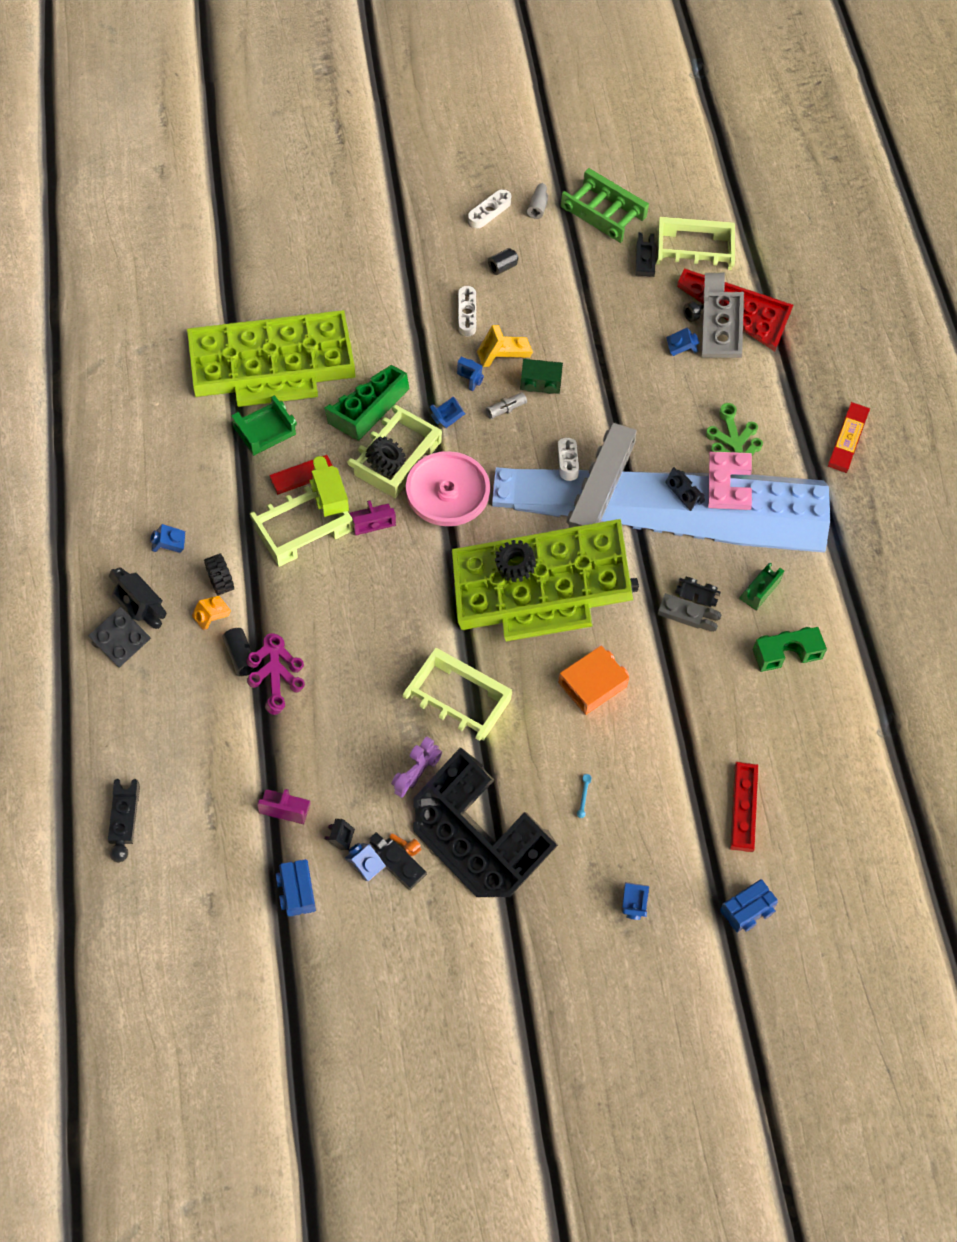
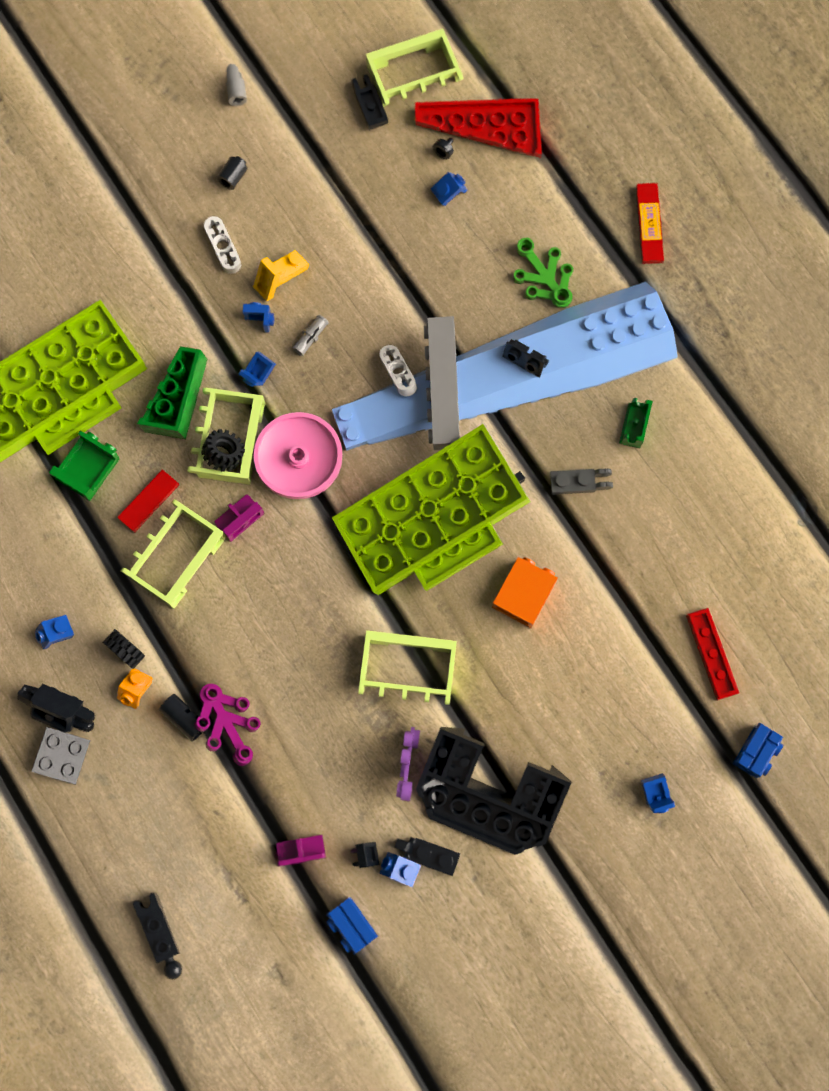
camera: 20 degrees left, 15 degrees up
(329, 488) = (185, 511): lime hinge -> none
(411, 848) = (435, 836): orange hand -> none
(486, 216) = (190, 124): white beam -> none
(511, 551) = (413, 516): black tyre -> none
(541, 376) = (331, 290): dark green brick -> none
(586, 780) = (561, 693): dark azure hinge -> none
(612, 192) = (306, 43): bright green fence -> none
(690, 588) = (588, 454): black hinge -> none
(713, 311) = (493, 153): light grey hinge -> none
(720, 493) = (560, 346): bright pink plate -> none
(806, 643) = (702, 464): green arch -> none

